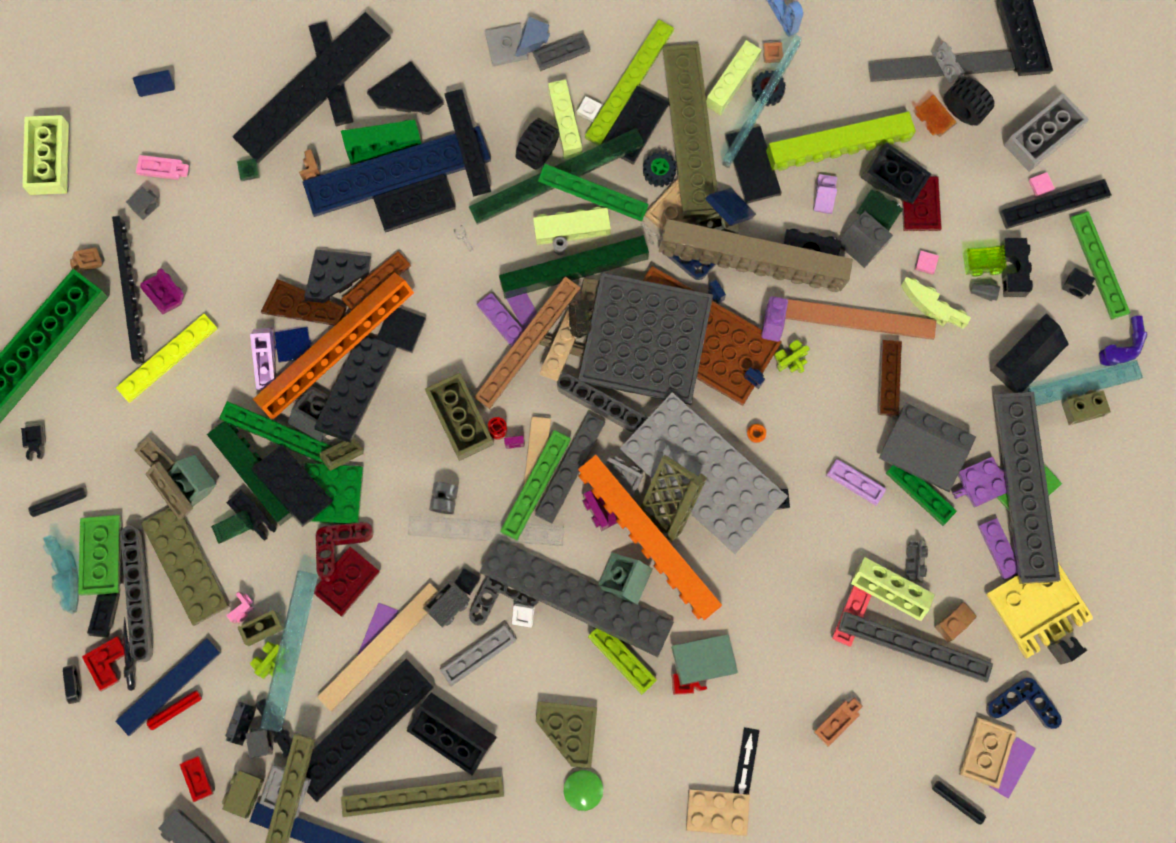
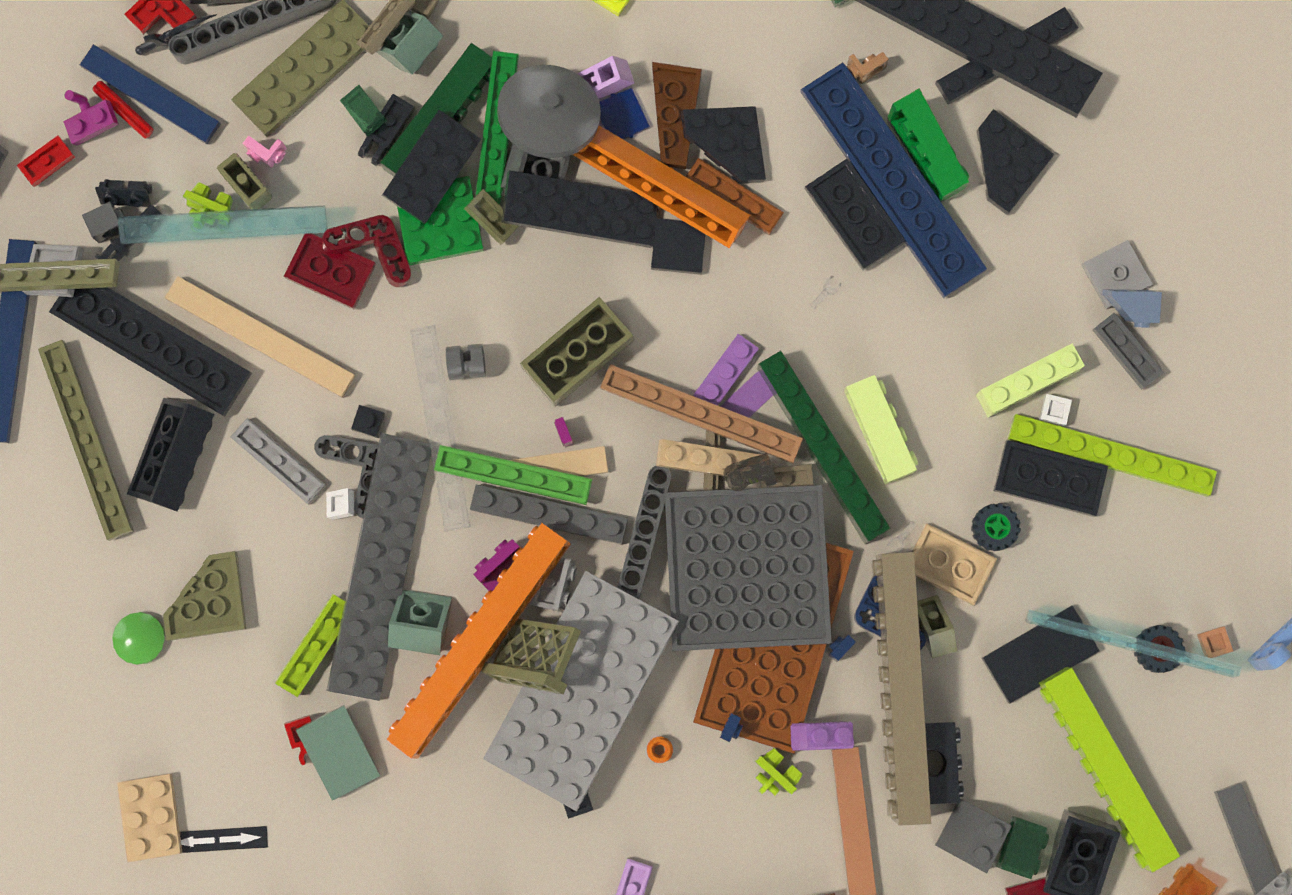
camera: 80 degrees right, 5 degrees up
(175, 736) = (90, 120): none -> magenta plate
(242, 794) = (38, 220): olive brick -> none
(277, 389) = (548, 111): none -> dark grey dish
(381, 619) = (294, 327): medium lavender sticker -> none
(447, 604) = (329, 402): dark grey brick -> none
(467, 142) = (956, 259): black plate -> none
(500, 430) = (575, 409): red wheel -> none
(537, 143) = (980, 352): black tyre -> none
(560, 245) = (853, 418): light grey pin -> none
(577, 166) = (945, 392): clear green plate -> none
(593, 192) = (932, 445): green plate -> none
(690, 129) = (1064, 556): olive plate -> none
(730, 206) = (964, 636): dark blue tile -> none
(733, 77) = (1159, 596): yellowish green brick -> none
(825, 194) = (1026, 765): lavender slope -> none

